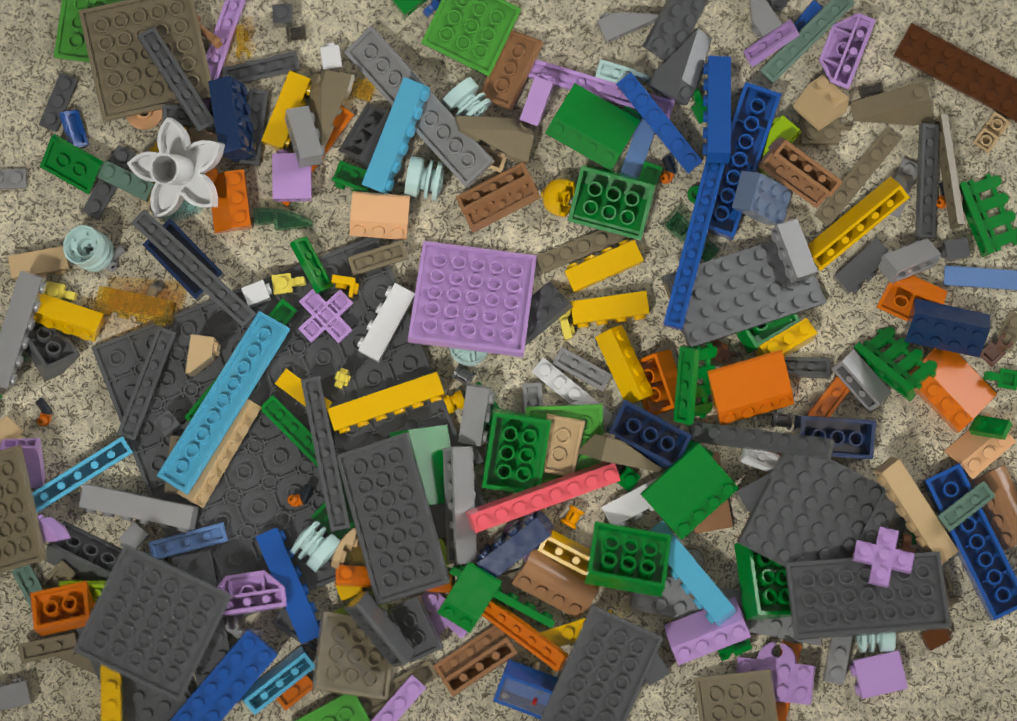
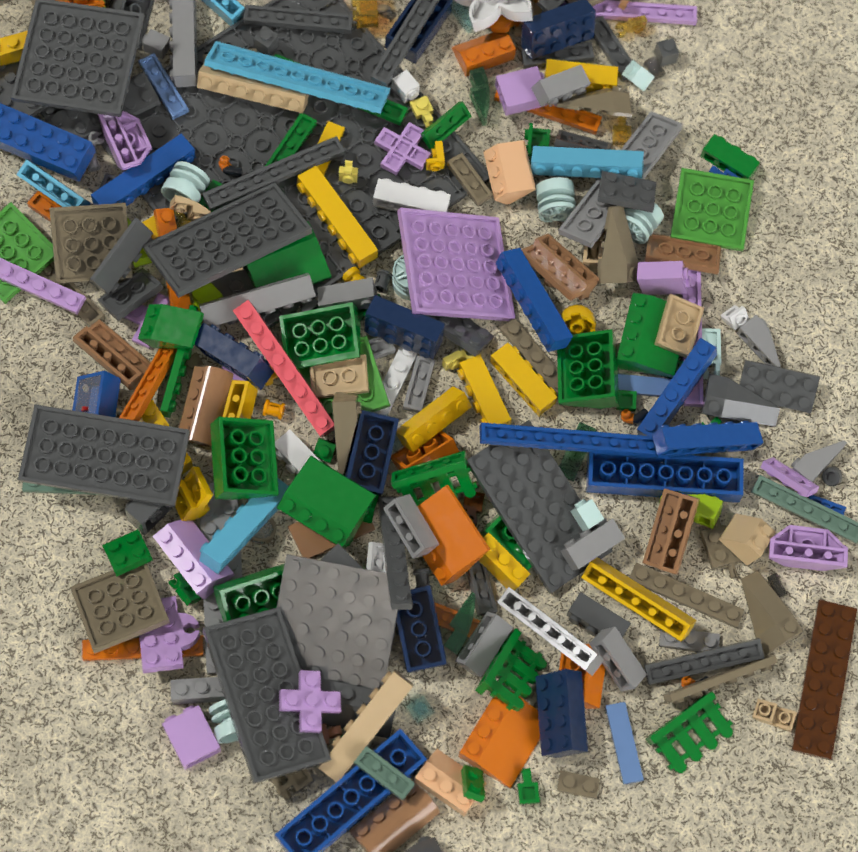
camera: 70 degrees right, 15 degrees down
(201, 353) = (335, 50): tan slope -> none
(304, 53) = (638, 75): none -> light aqua brick
(331, 57) = (642, 101): white brick -> none
(443, 106) = (627, 191): none -> dark grey plate
(527, 233) = (533, 299): none -> blue brick
(527, 369) = (401, 327): none -> dark blue brick
(592, 40) = (735, 317): none -> white bracket
(592, 99) = (679, 326): none -> tan tile
(647, 614) = (193, 496): none -> yellow brick
(684, 693) = (127, 552): none -> green plate
(739, 417) = (411, 526): none -> light grey brick
(761, 198) = (634, 500): sand blue brick -> none
(766, 247) = (586, 514): none -> light aqua brick
(840, 396) = (461, 624): none -> clear green slope
(869, 315) = (551, 631): none -> brick
(905, 454) = (420, 709): none -> clear light blue plate
(935, 638) = (243, 785): reddish brown brick -> none
(955, 249) = (644, 706): dark grey brick -> none
(994, 351) = (553, 771): reddish brown plate -> none

